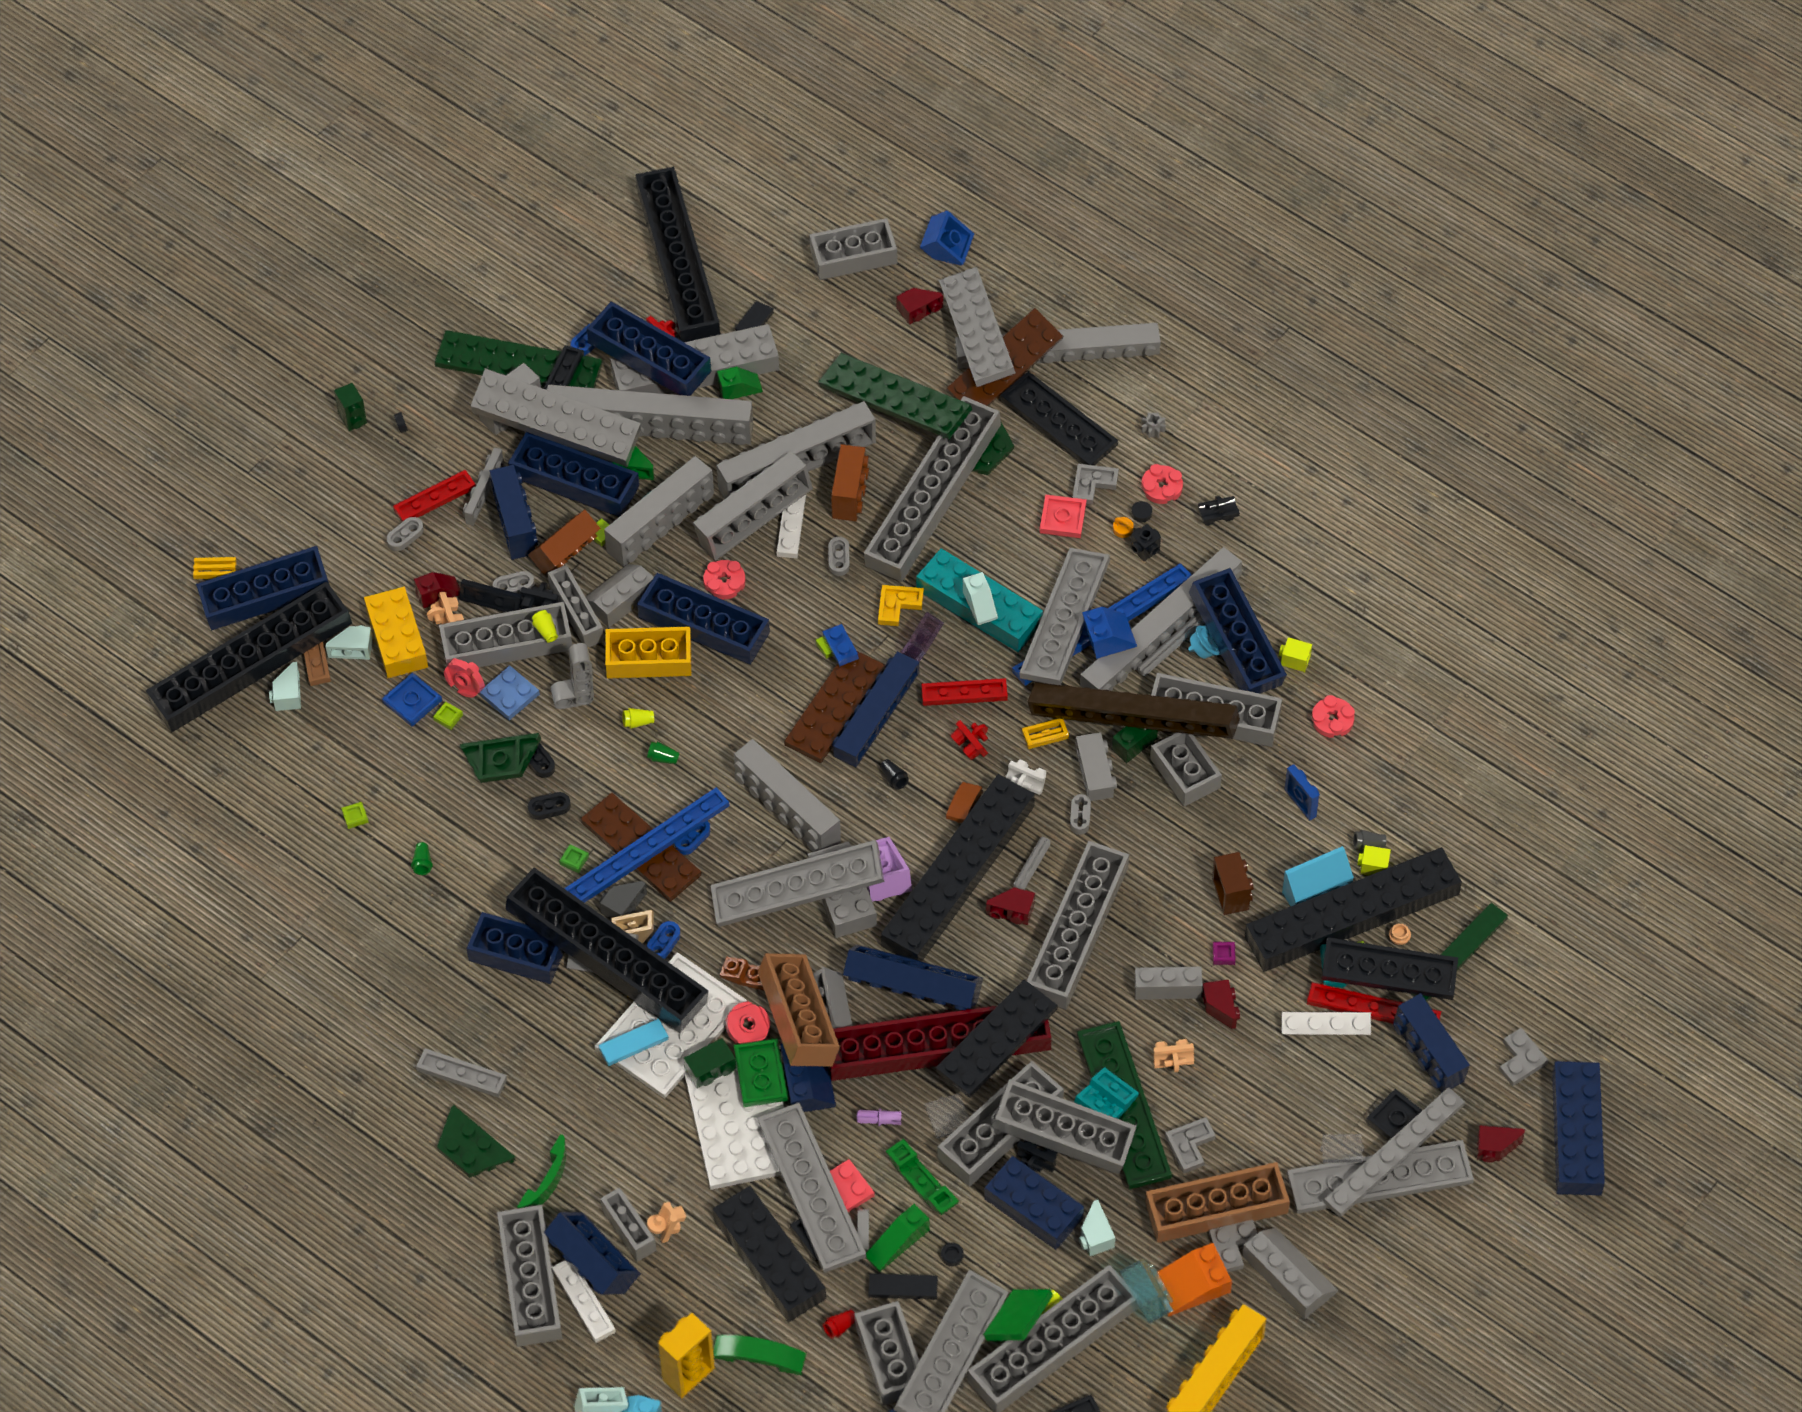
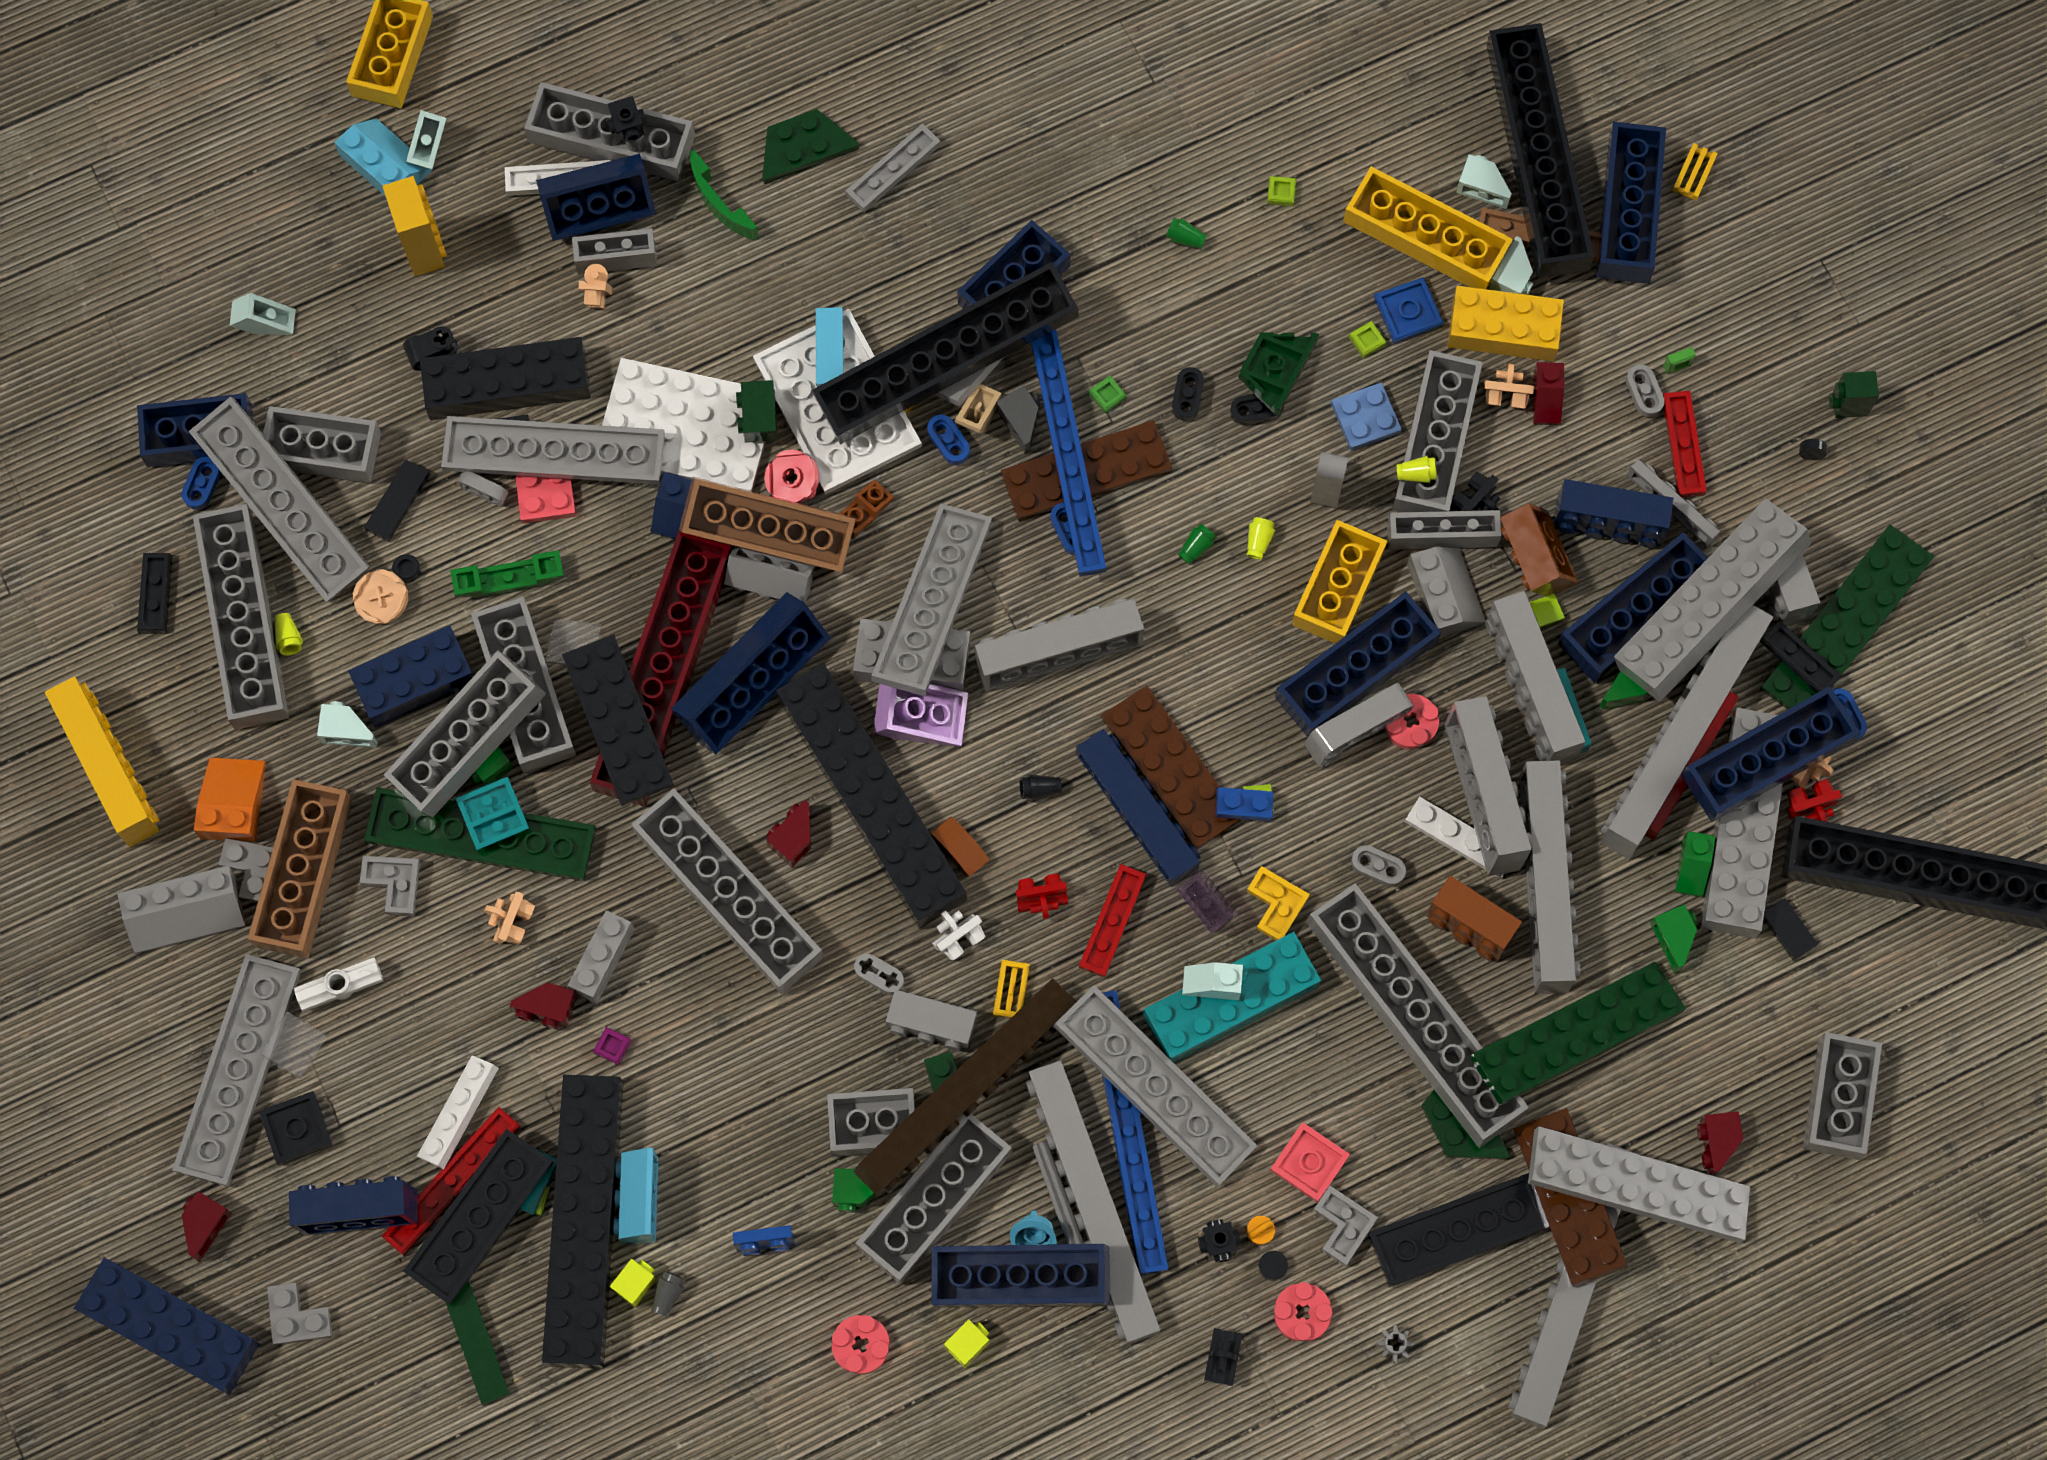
camera: 115 degrees right, 15 degrees up
(346, 704) = (1427, 229): none -> yellow brick
(372, 521) = (1679, 360): none -> bright green tile
(464, 677) = (1400, 366): coral plate -> none
(489, 596) = (1507, 444): black tile -> none
(513, 581) = (1514, 481): light grey plate -> none
(523, 1247) = (626, 120): none -> black brick
(749, 597) = (1357, 723): none -> light grey beam
(759, 1351) = (400, 321): green slope -> none
(760, 1073) = (723, 459): green tile -> none
(773, 1322) = (429, 345): none -> black piece
(794, 375) = (1675, 934): none -> green slope
(839, 1323) = (388, 415): red cone -> none
(879, 1117) = (607, 566): lavender axle -> none
(898, 1237) = (452, 520): green slope -> none
(947, 239) = (1810, 1227): blue slope -> none
(985, 1257) = (380, 597): none -> light nougat tile
(1018, 1315) = (283, 589): green tile -> none
(1032, 863) = (841, 886): light grey axle -> none
(1108, 631) = (1099, 1119): blue slope -> none
(1147, 1290) = (234, 735): clear light blue piece -> none
(1232, 760) = (849, 1191): none -> green slope
(1232, 883) = (685, 1092): reddish brown piece -> none
(1293, 1148) = (321, 991): none -> white piece
(1394, 1152) = (251, 1097): light grey plate -> none
(1399, 934) = (527, 1262): light nougat plate -> none

